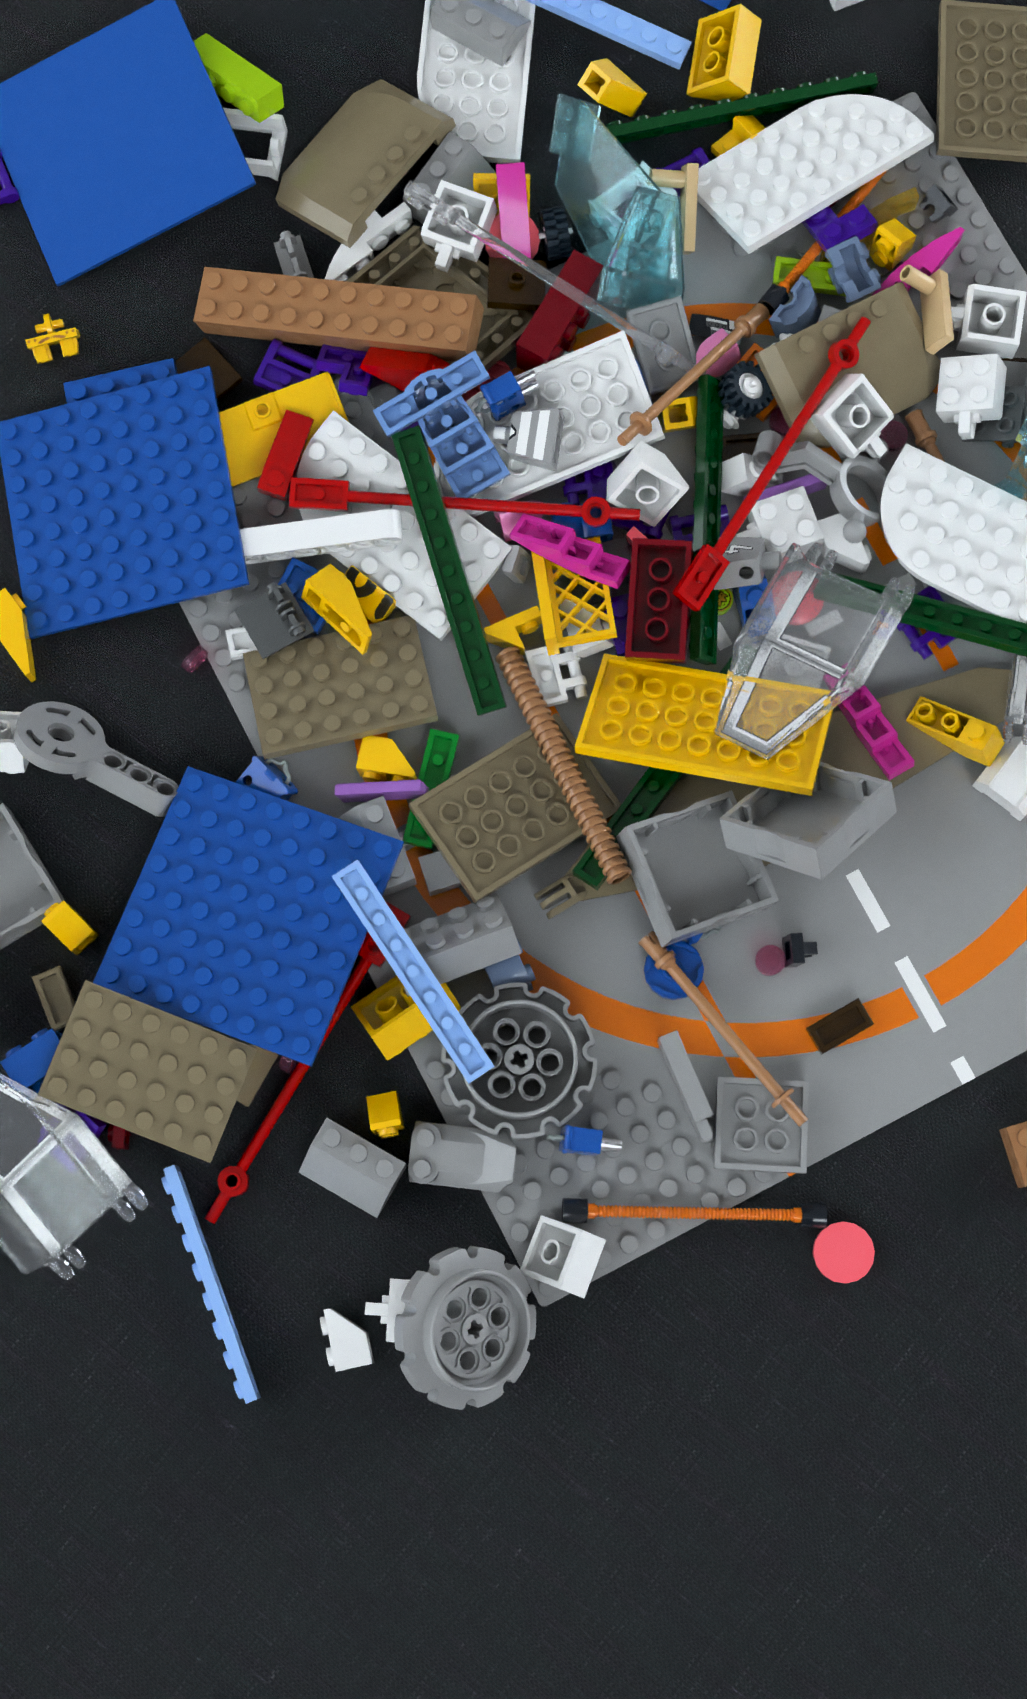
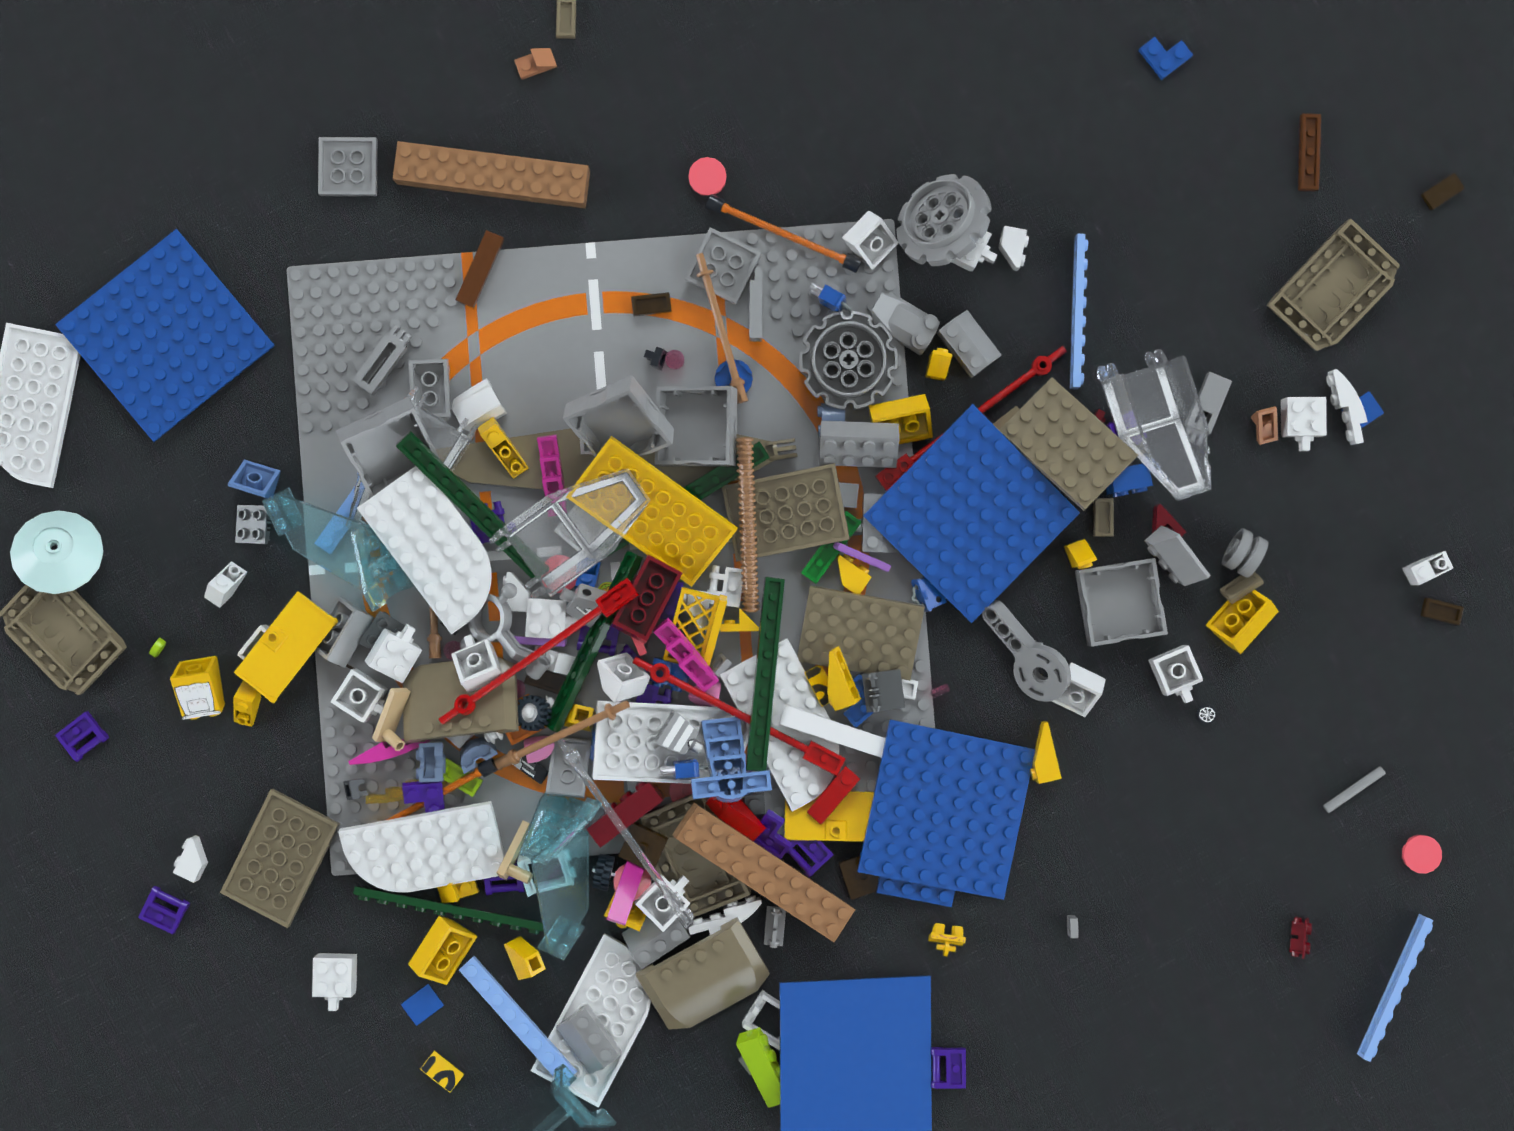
camera: 155 degrees left, 10 degrees up
(413, 971) = (891, 431): light blue plate -> none
(891, 244) = (397, 773): yellow slope -> none

